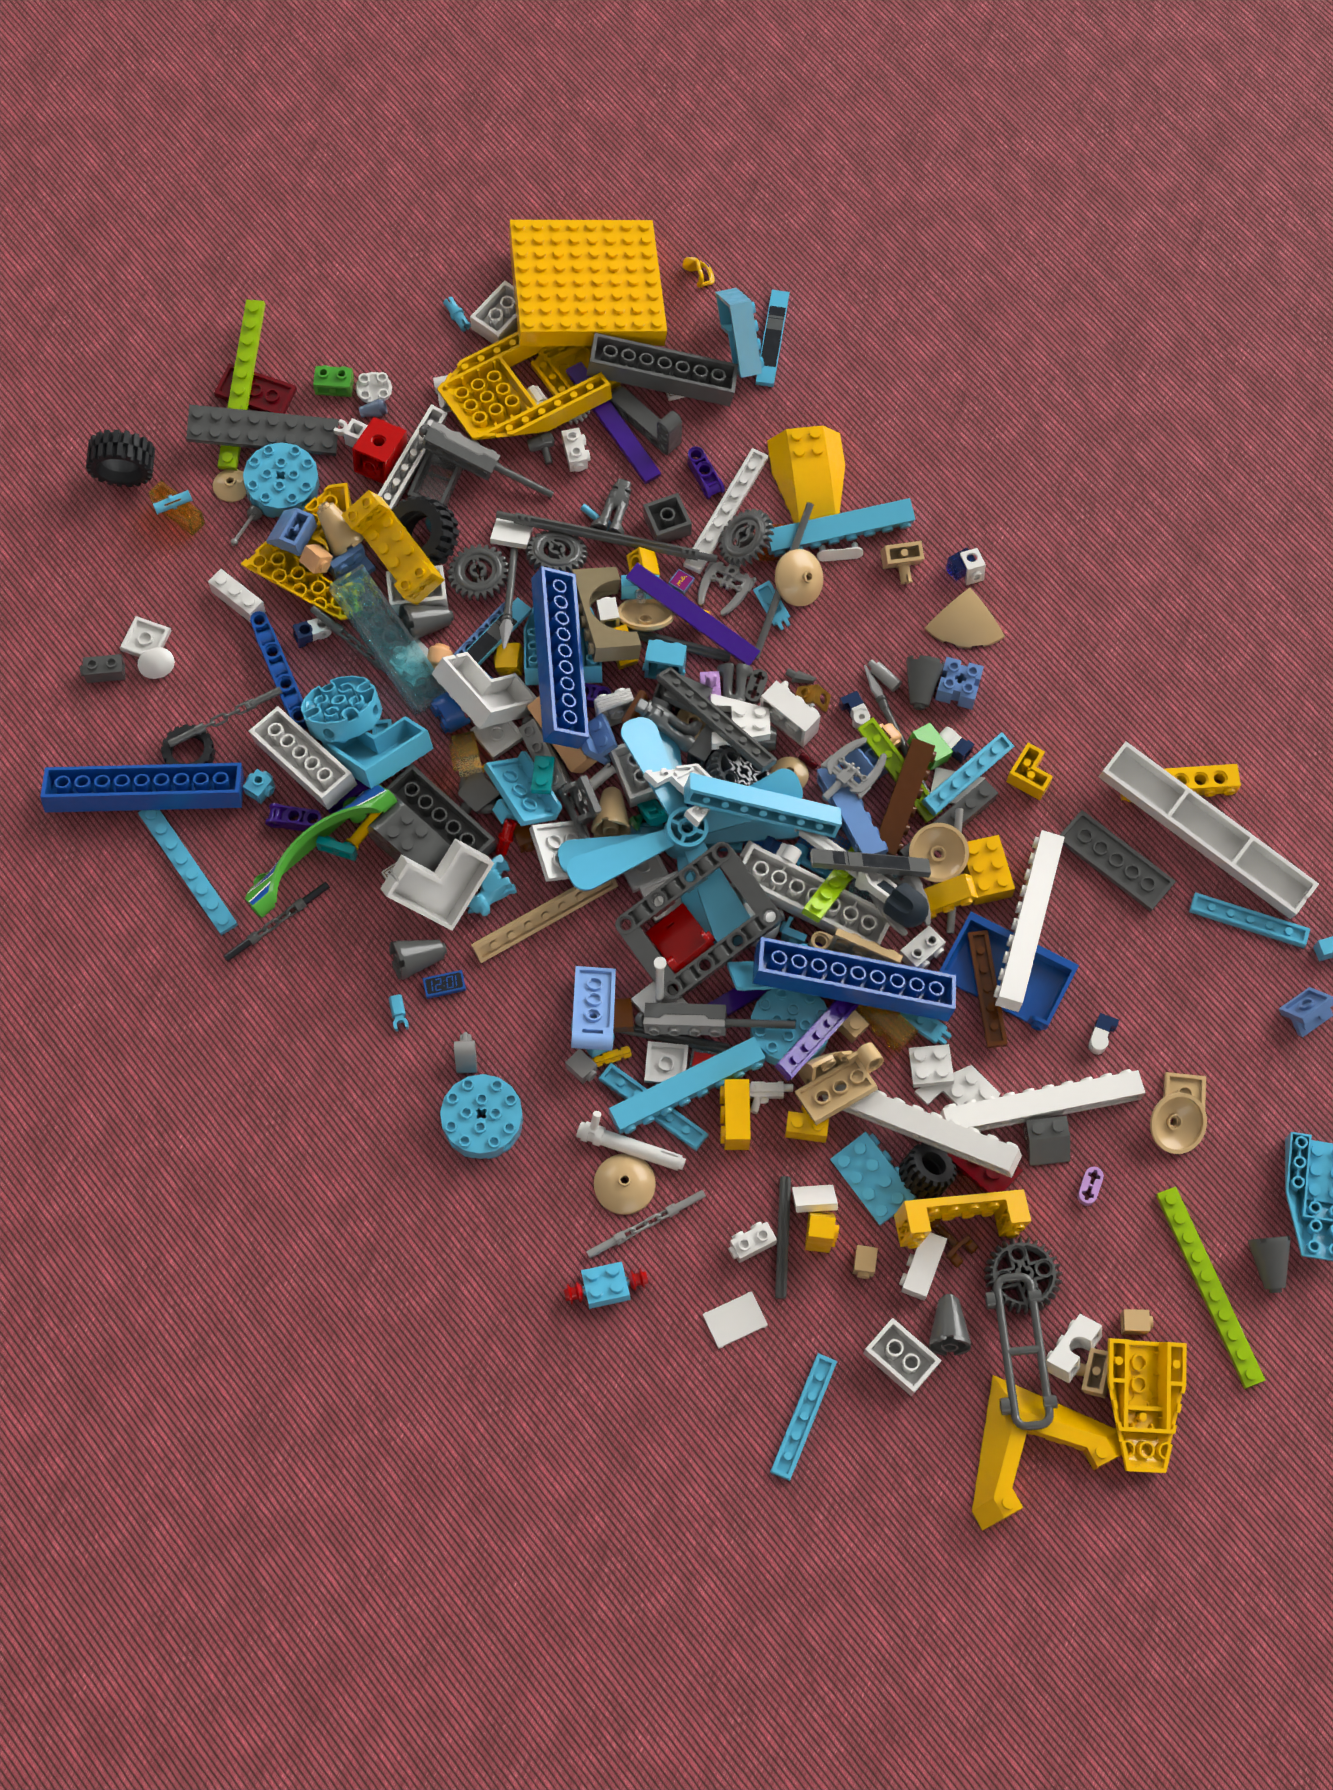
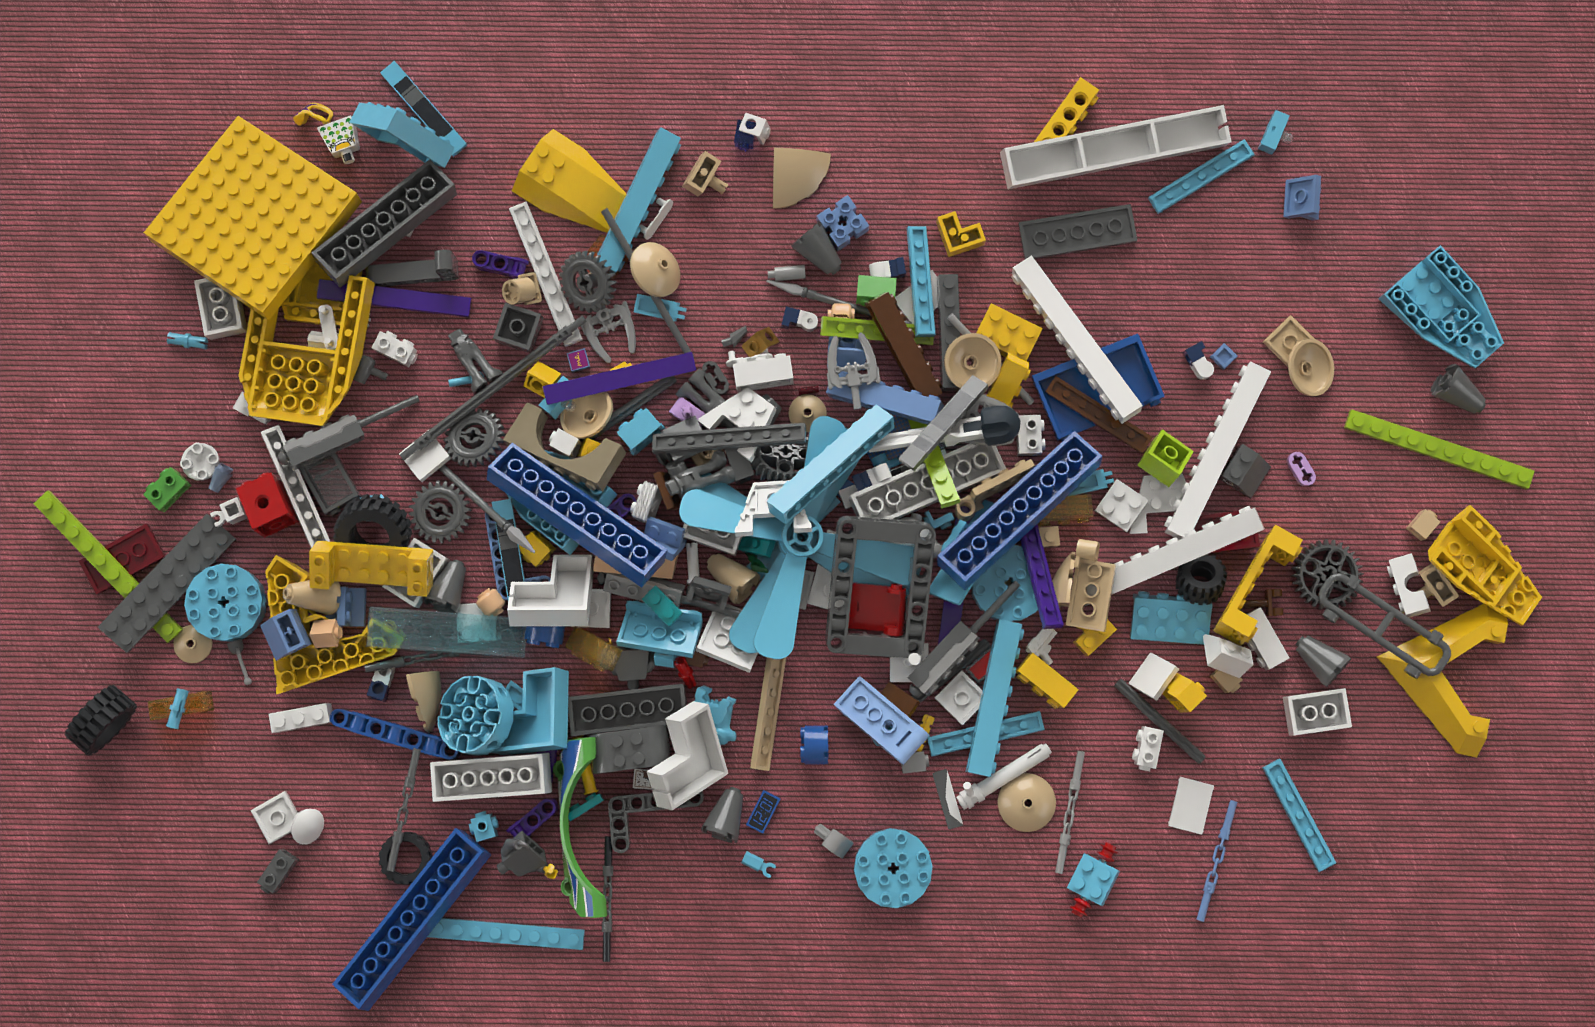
camera: 45 degrees left, 15 degrees up
(259, 830) = (524, 856): none -> dark grey torso
(330, 662) = (426, 690): none -> tan brick
(362, 879) = (629, 808): none -> dark grey beam
(530, 977) = (815, 745): none -> blue brick
(554, 388) = (328, 327): none -> white piece
(573, 1120) = (947, 799): none -> dark grey sticker
(698, 300) = (341, 138): none -> white torso
(699, 499) = (522, 290): none -> tan piece
(733, 1366) = (1209, 887): none -> medium blue piece
(882, 1240) = (1227, 656): none -> white slope
(999, 1065) = (1165, 458): none -> lime brick
(1124, 1051) = (1223, 356): none -> medium blue tile

